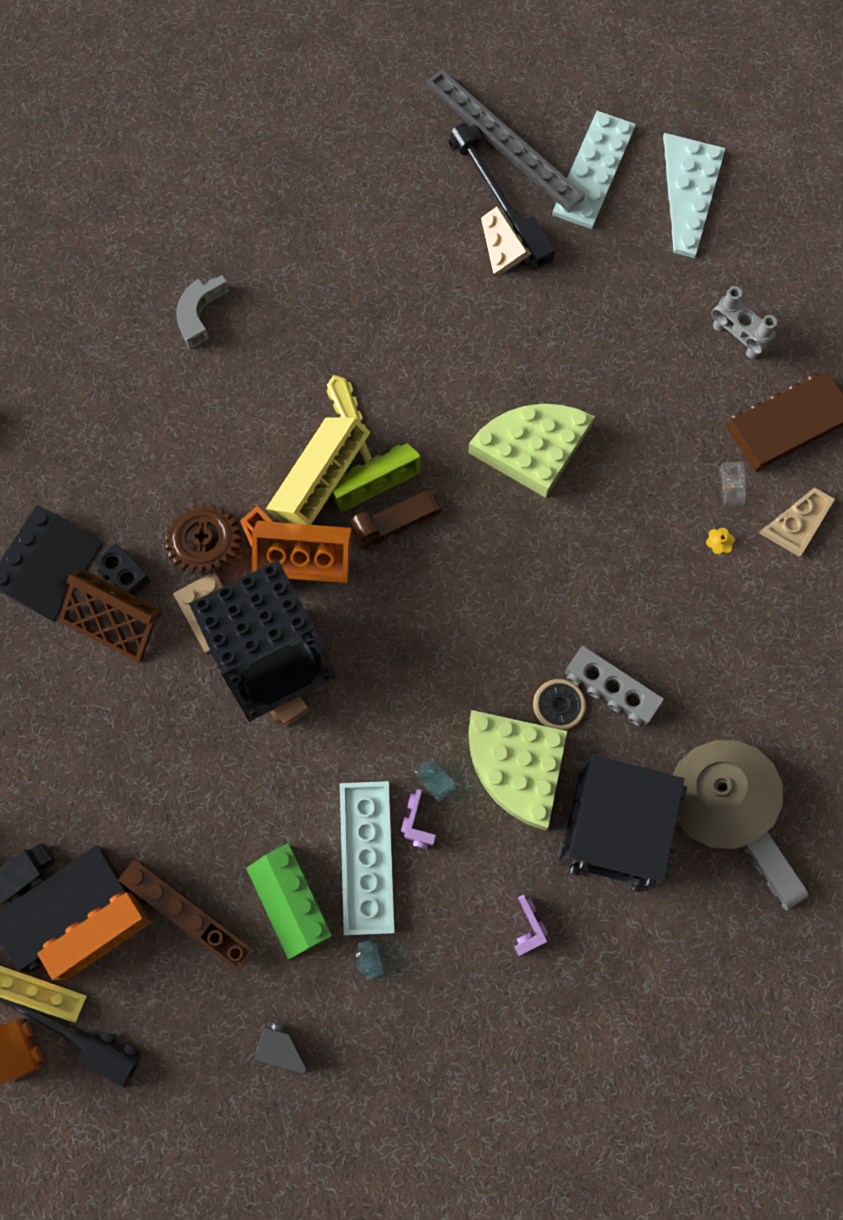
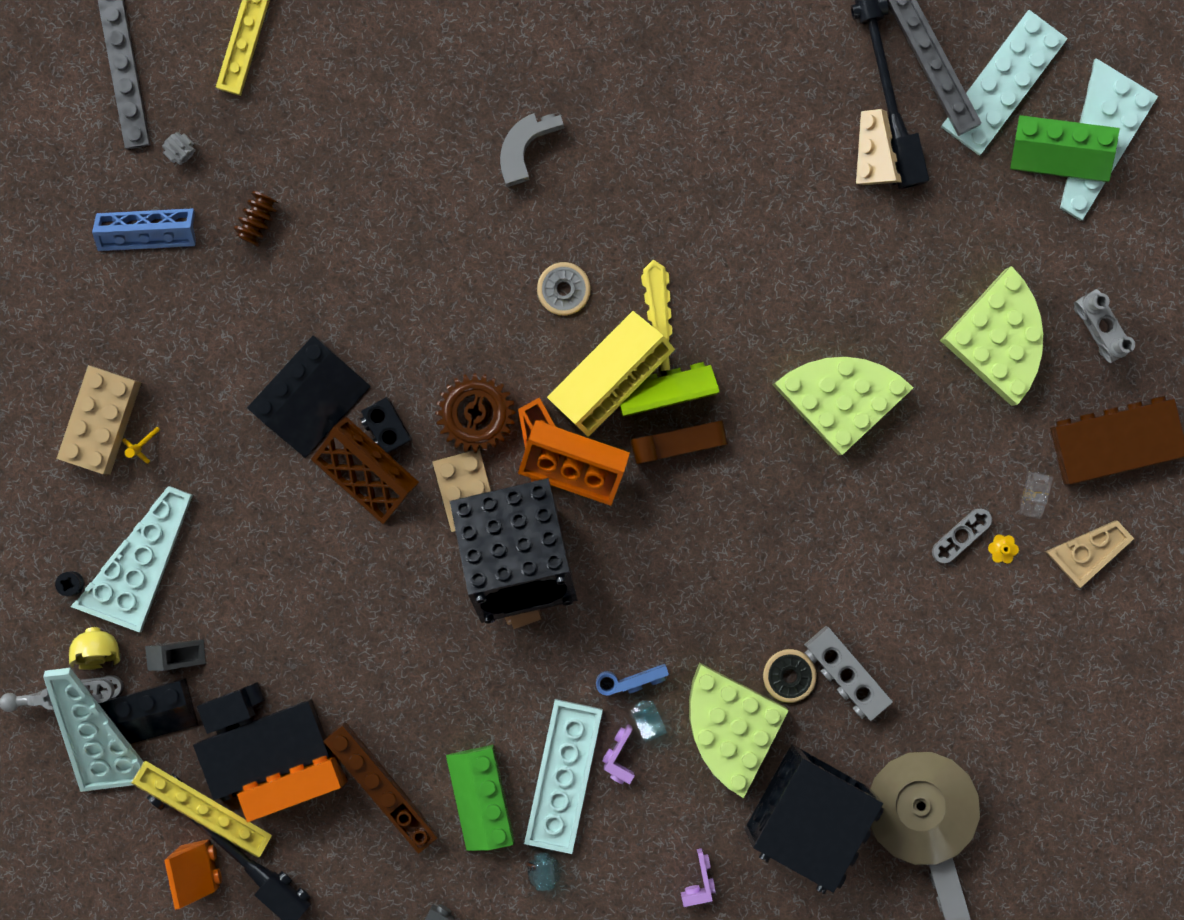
camera: 15 degrees right, 15 degrees up
(263, 430) = (552, 299): none -> light grey wheel
(412, 747) = (633, 683): none -> medium blue plate
(658, 361) = (1001, 337): none -> yellowish green brick
(661, 199) = (1064, 148): none -> bright green slope
(679, 529) = (971, 536): none -> light grey beam

